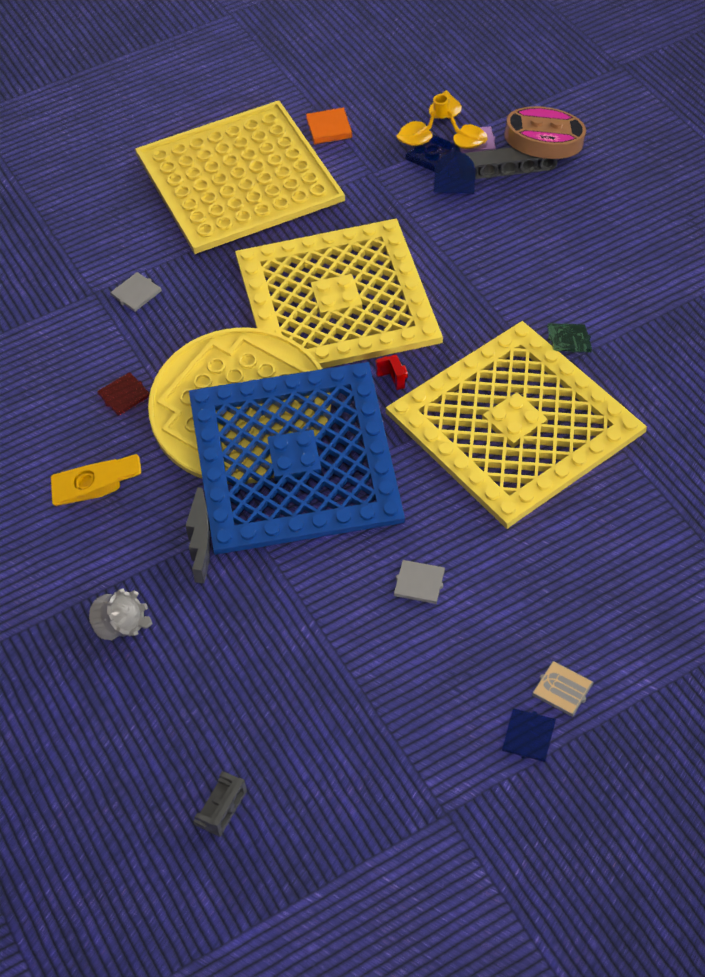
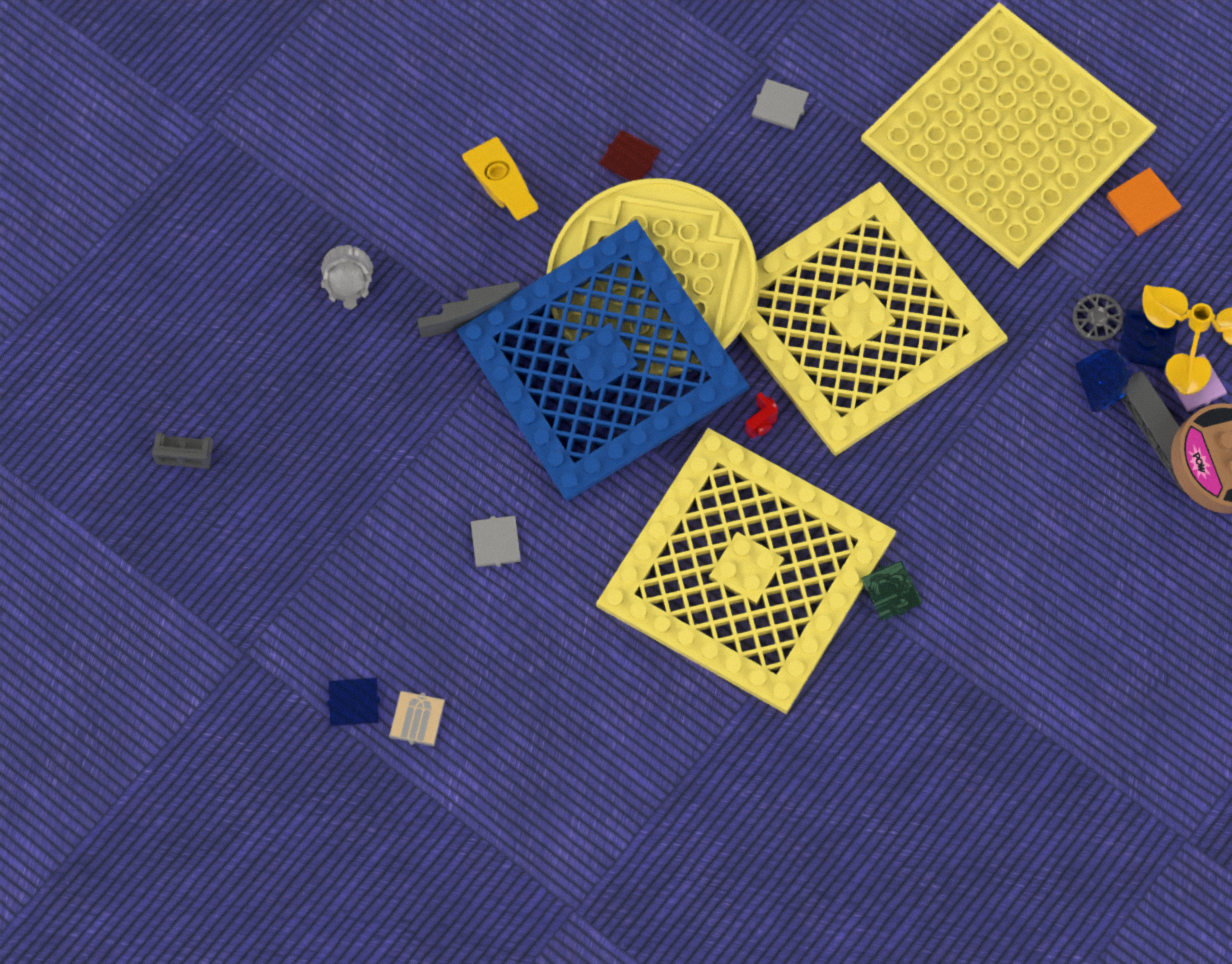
camera: 70 degrees right, 15 degrees up
(403, 172) = (1097, 317): none -> flat silver wheel

